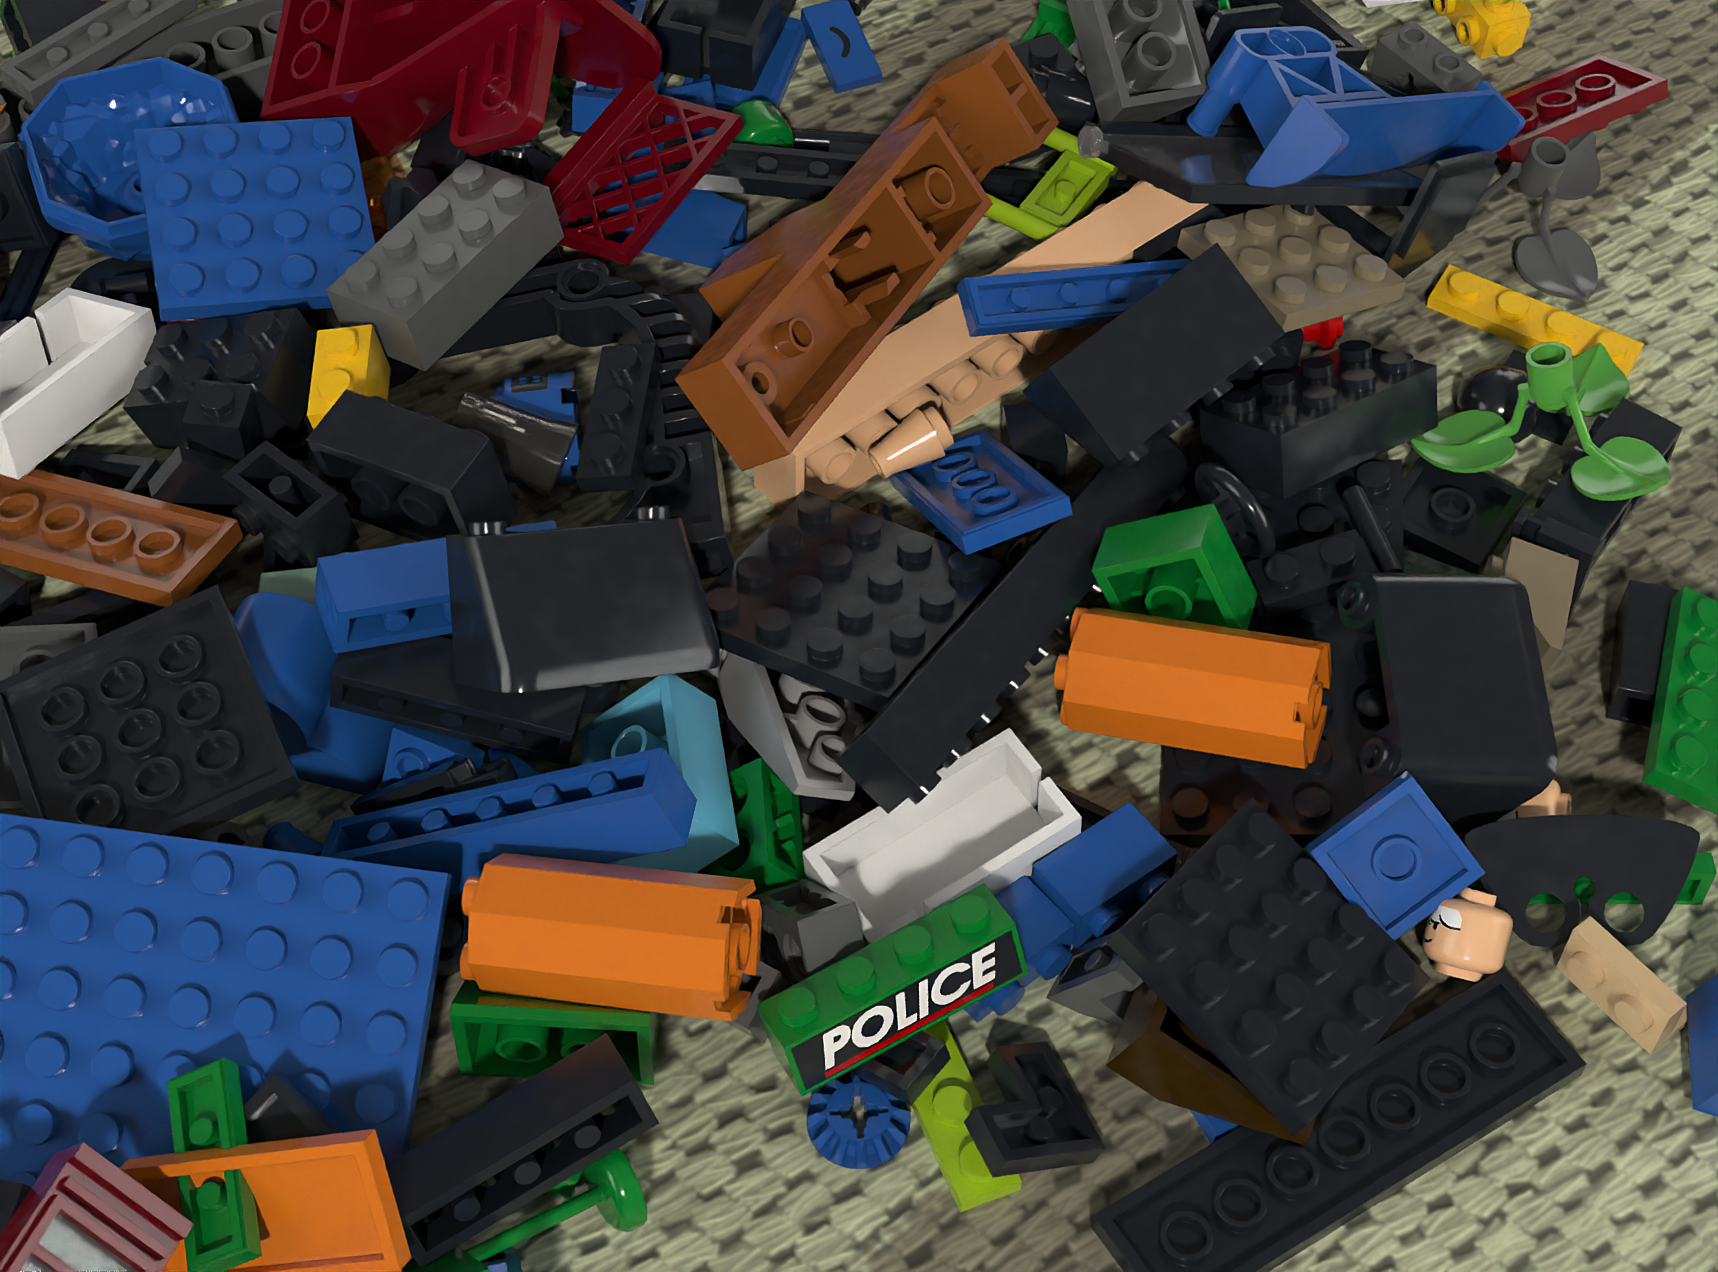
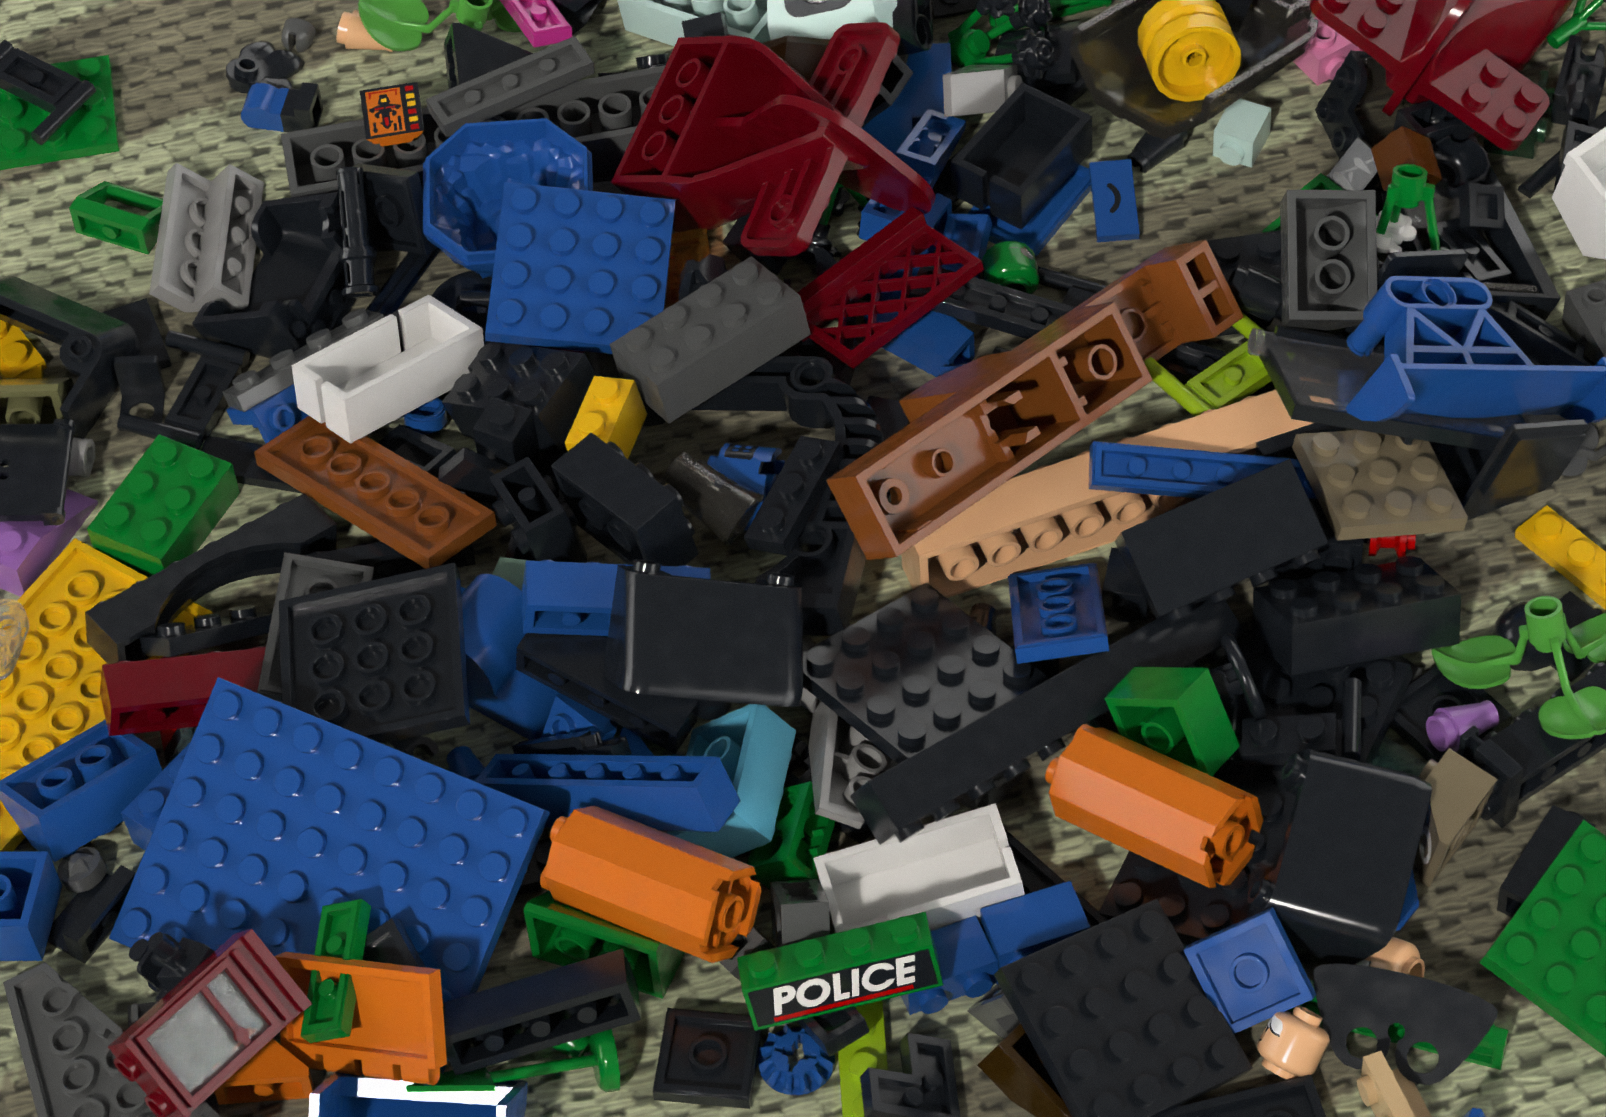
camera: 25 degrees right, 0 degrees up
(105, 434) = (427, 418): none -> blue tile
(745, 1149) = (707, 1058): none -> black plate
(912, 443) = (1025, 563): light nougat cone -> none
(1482, 517) = (1451, 722): none -> medium lavender cone

